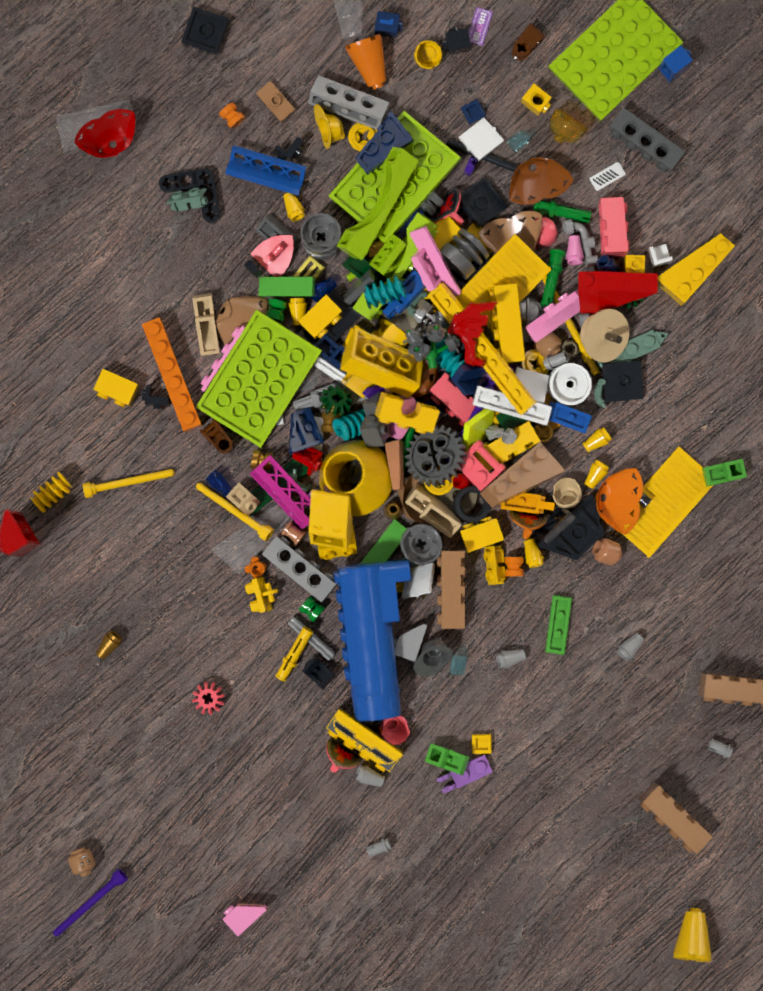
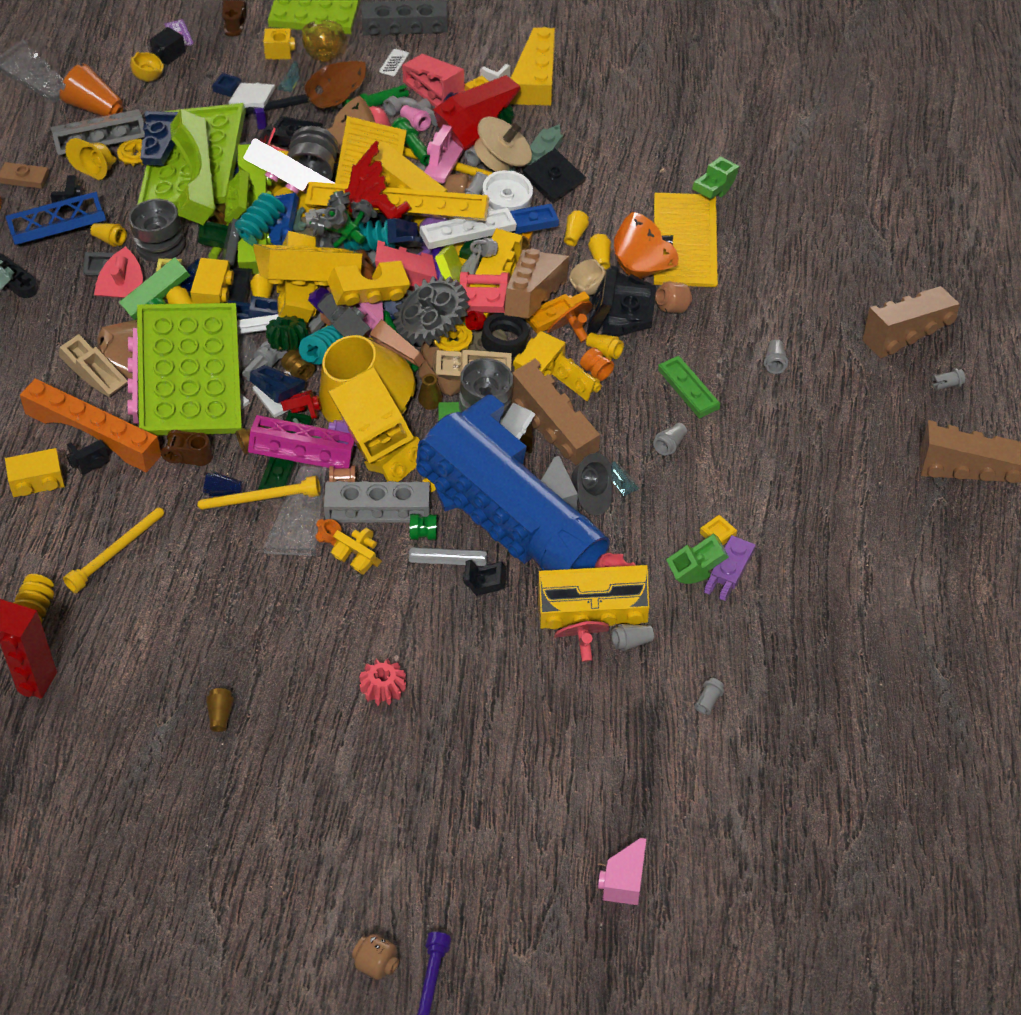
camera: 45 degrees left, 35 degrees down
(243, 499) = (259, 475): tan bracket -> none
(252, 268) = (106, 297): black tile -> none
(290, 660) = (442, 577): yellow pin -> none
(388, 24) = (94, 61): dark blue brick -> none
(598, 391) = (539, 197): sand green piece -> none

